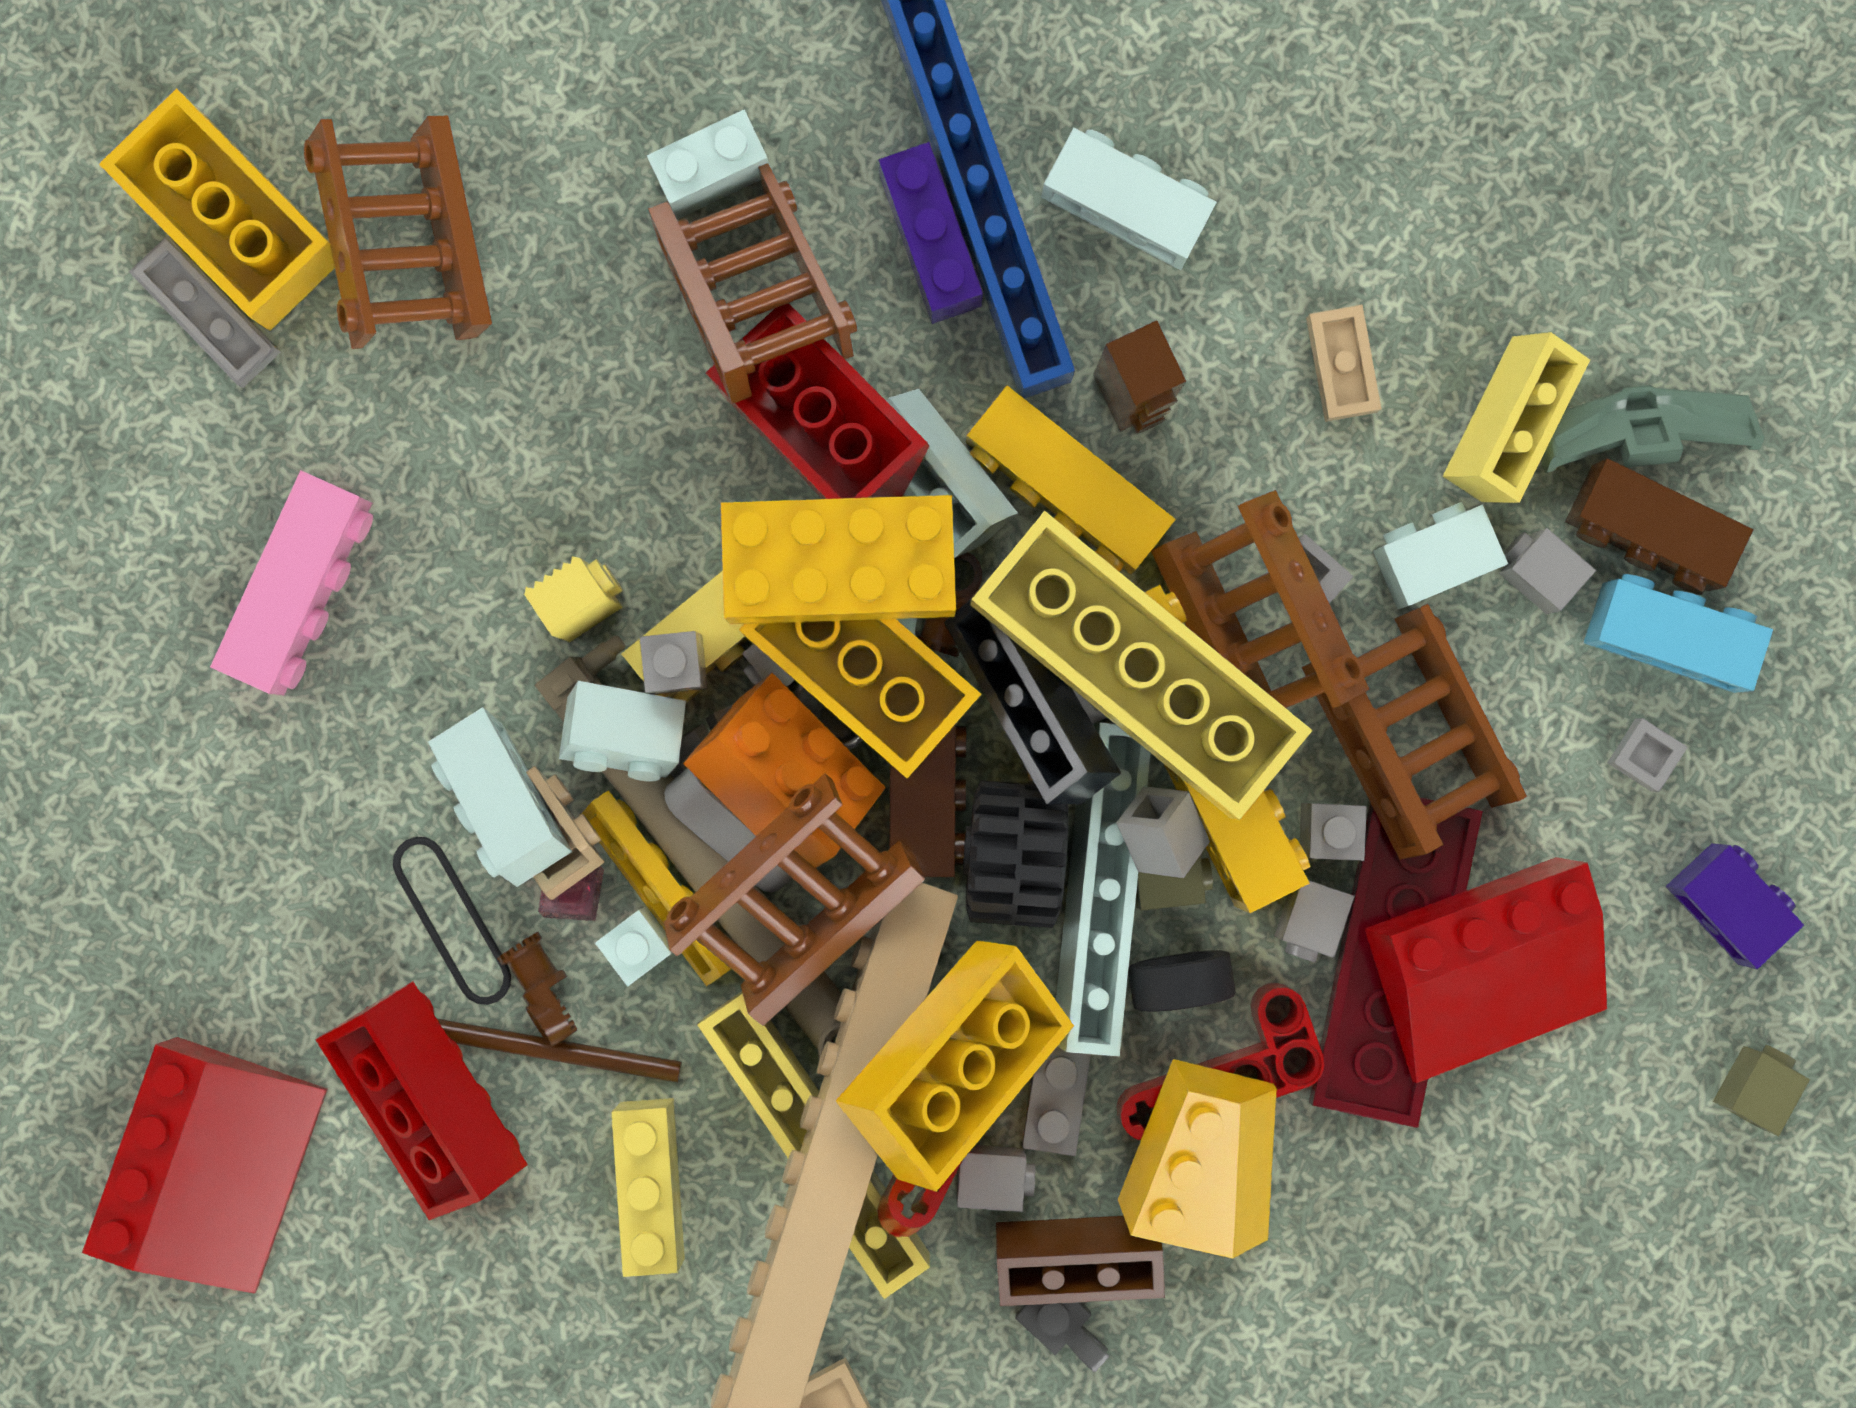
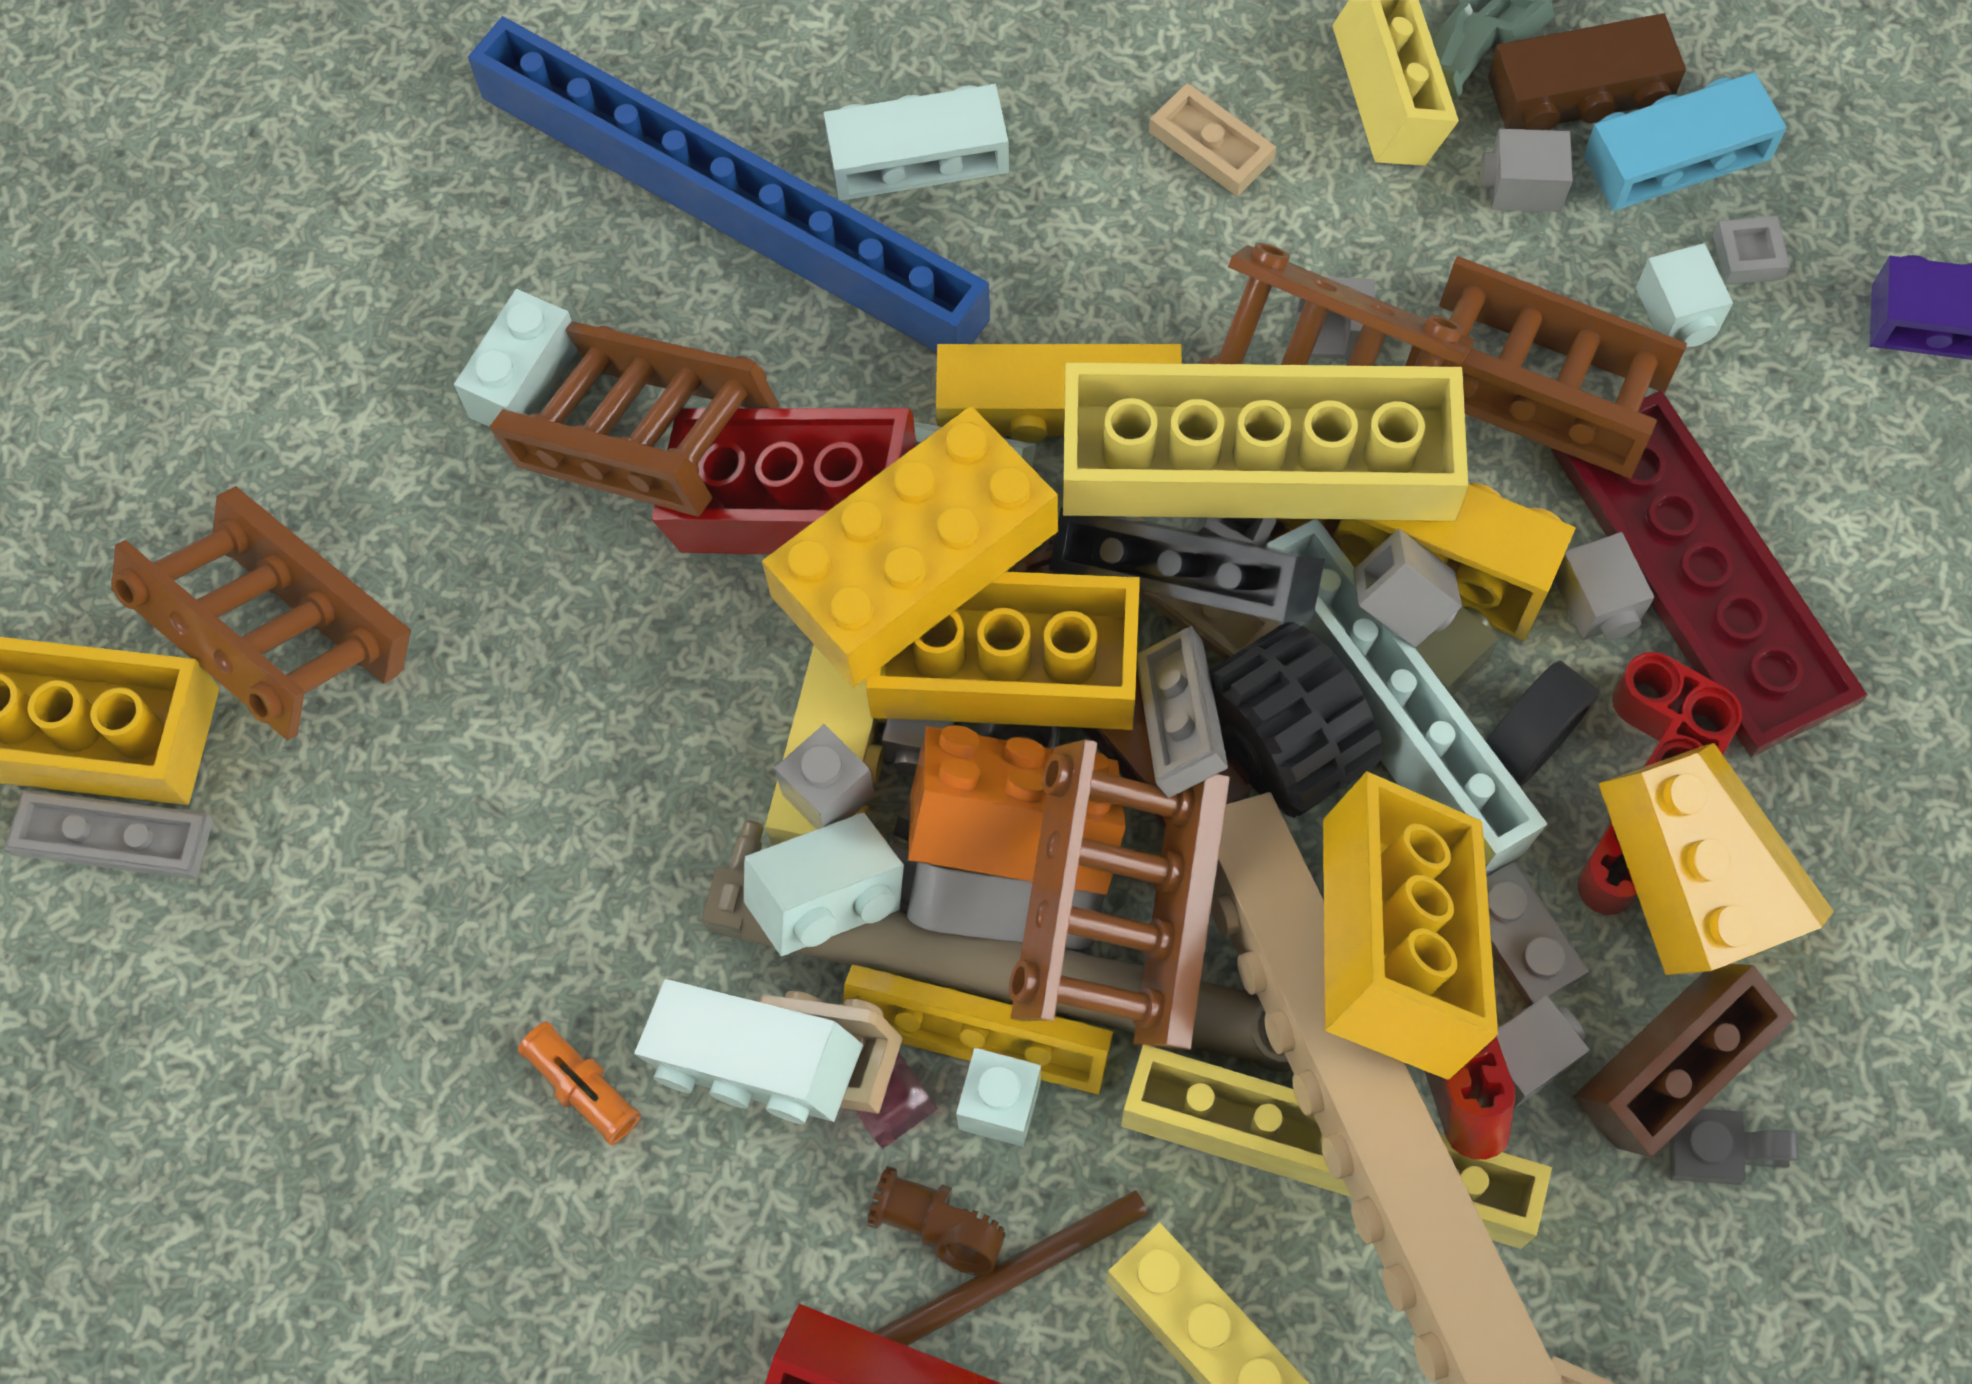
camera: 35 degrees left, 20 degrees down
(293, 585) = (382, 1017): bright pink brick -> none
(387, 725) = (608, 1114): none -> orange pin
(431, 929) = (780, 1260): black piece -> none
(575, 598) = (680, 807): light yellow brick -> none
(930, 233) = (765, 282): dark purple brick -> none
(935, 805) = (1180, 712): none -> light grey tile
(1139, 378) = (1050, 245): reddish brown brick -> none
(1333, 831) = (1557, 486): light grey brick -> none
(1439, 556) = (1430, 221): light aqua brick -> none
(1493, 965) = (1796, 503): red slope -> none
(1564, 755) = (1684, 295): none -> light aqua brick

